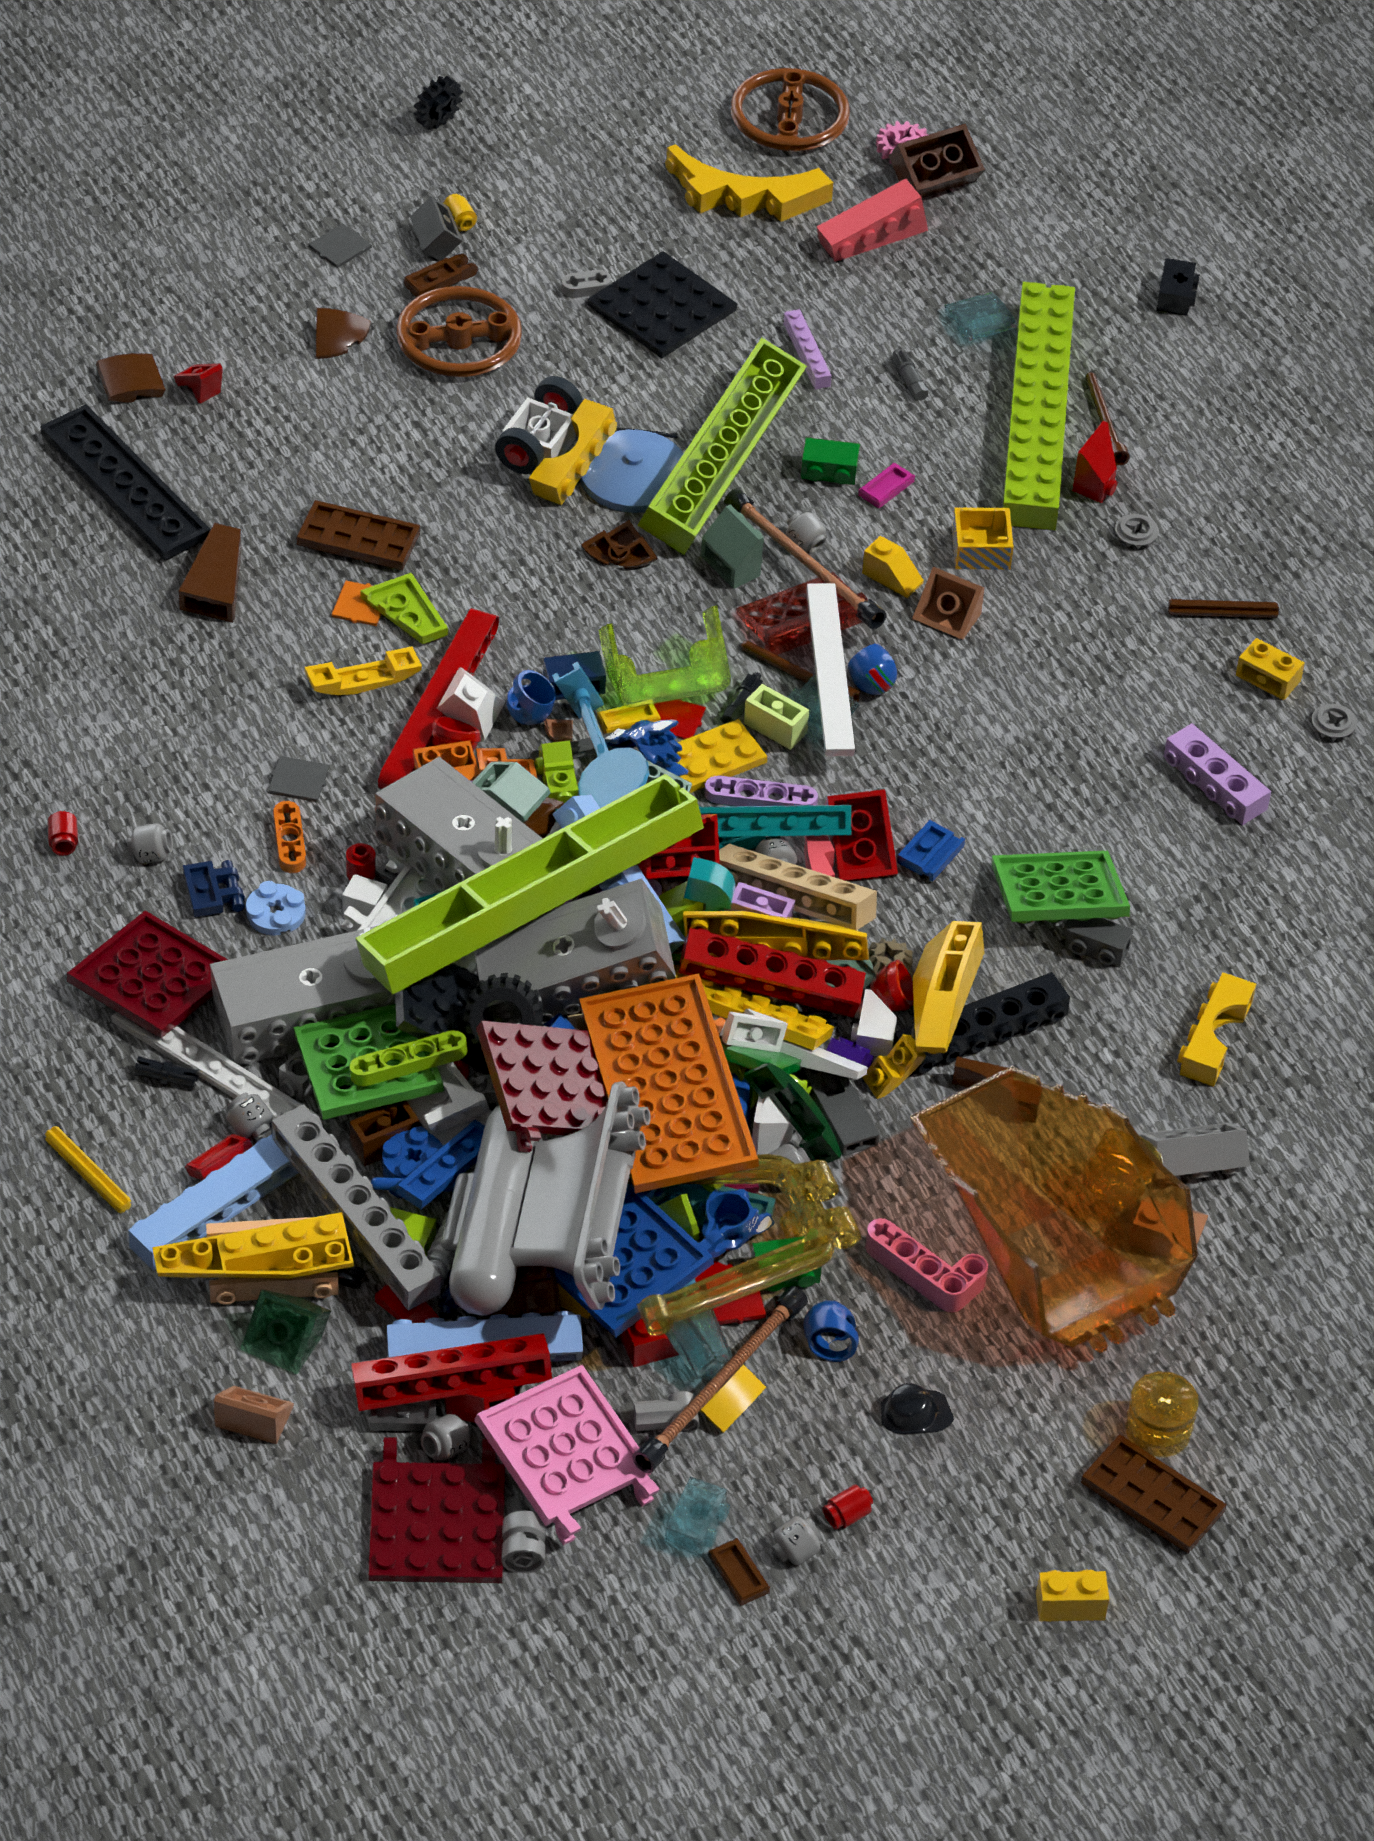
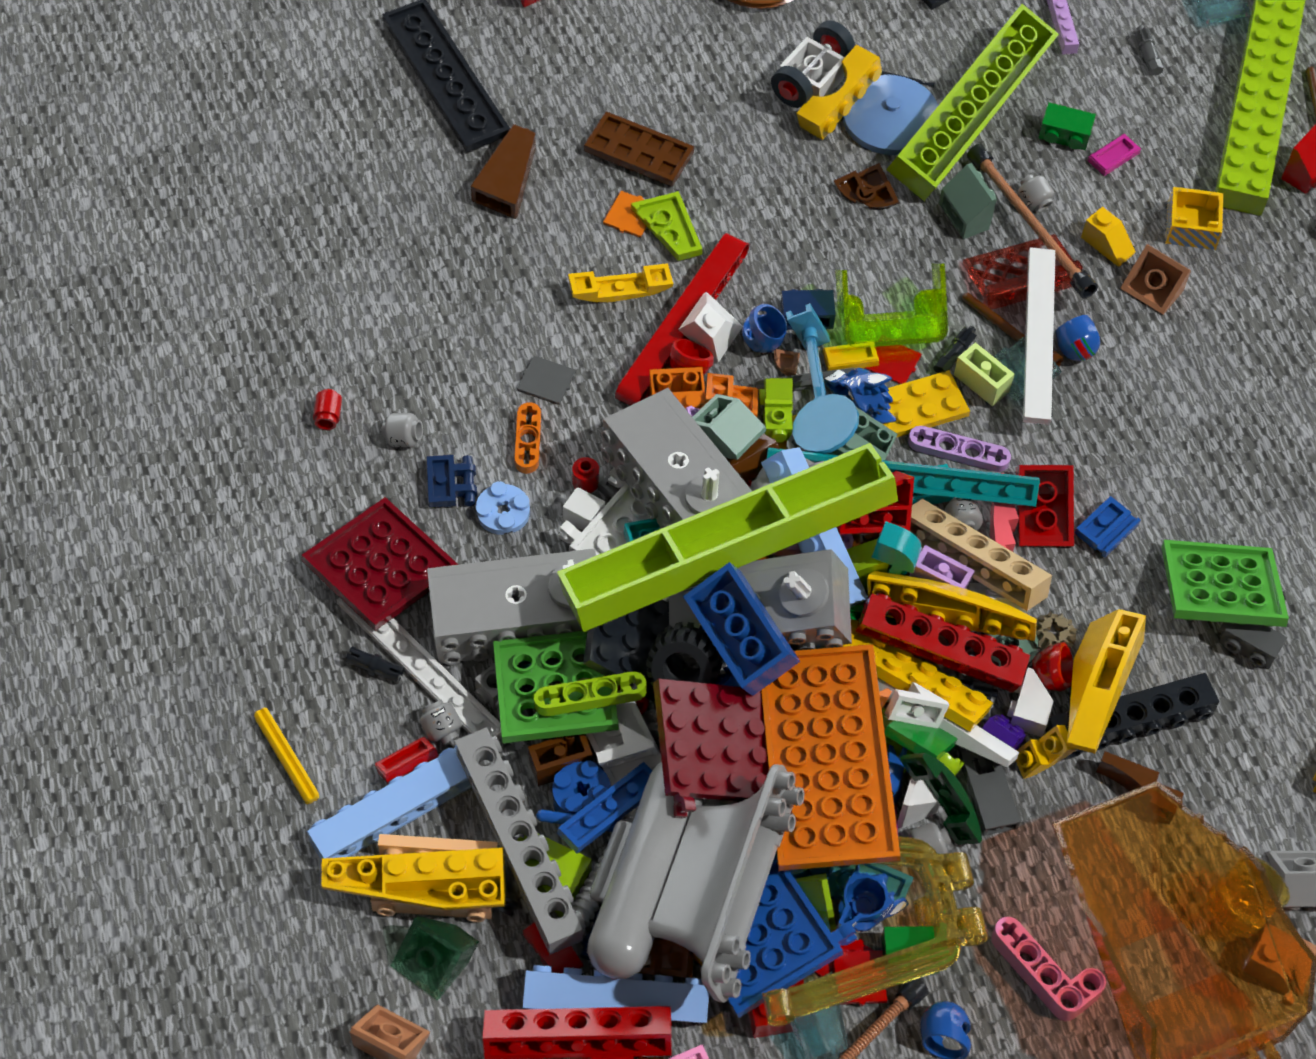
camera: 10 degrees right, 10 degrees up
(559, 967) = (741, 629): none -> blue brick

